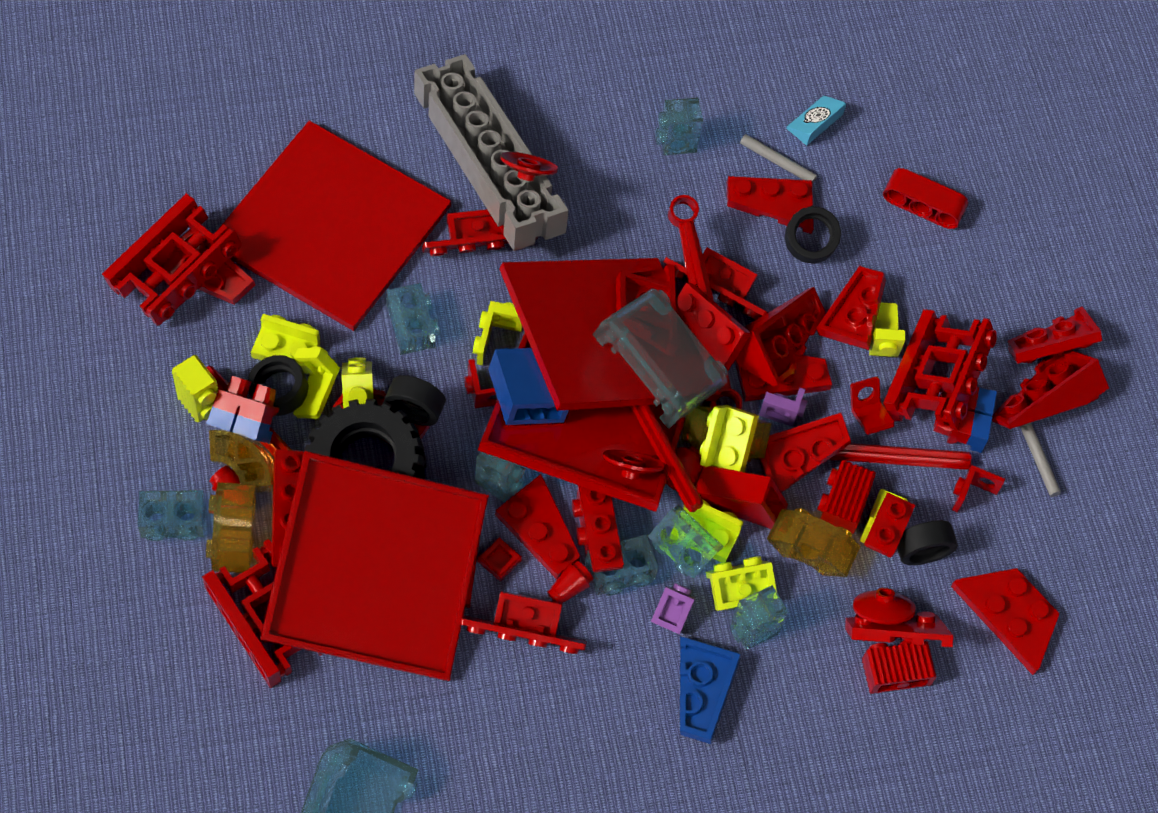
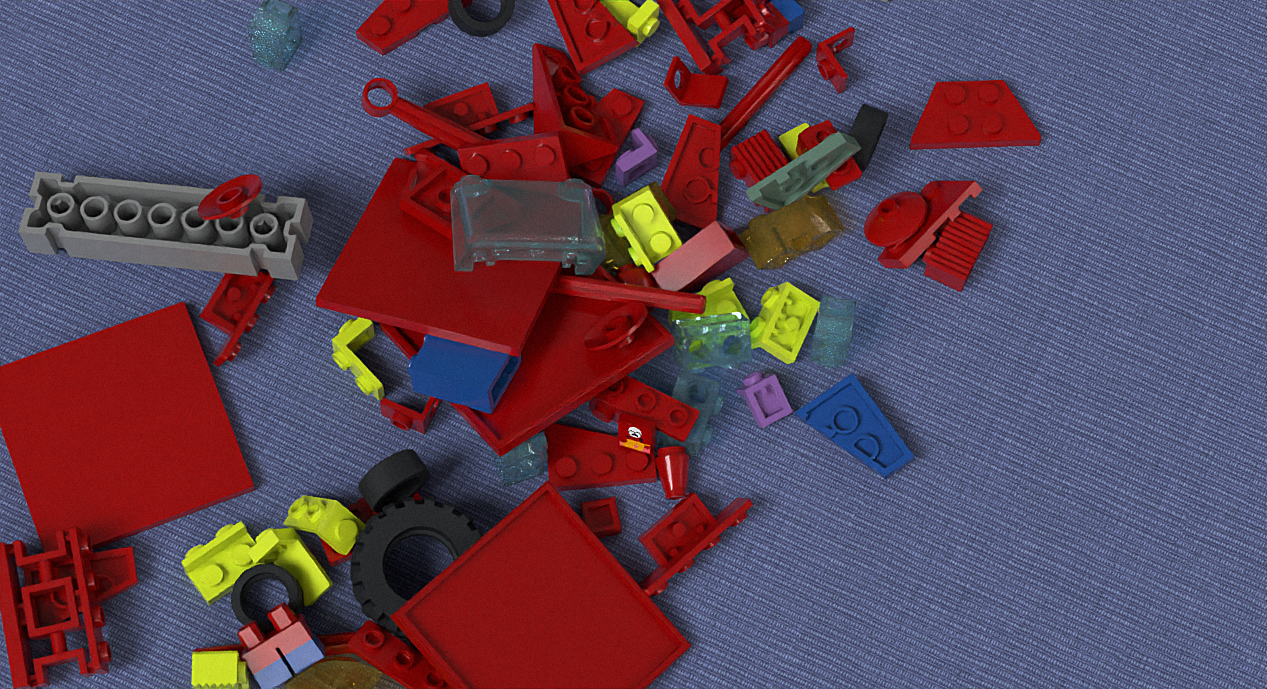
camera: 50 degrees left, 5 degrees up
(408, 319) = (283, 434): clear light blue brick -> none
(575, 536) = (637, 433): none -> red tile
(855, 511) = (803, 173): none -> sand green wing

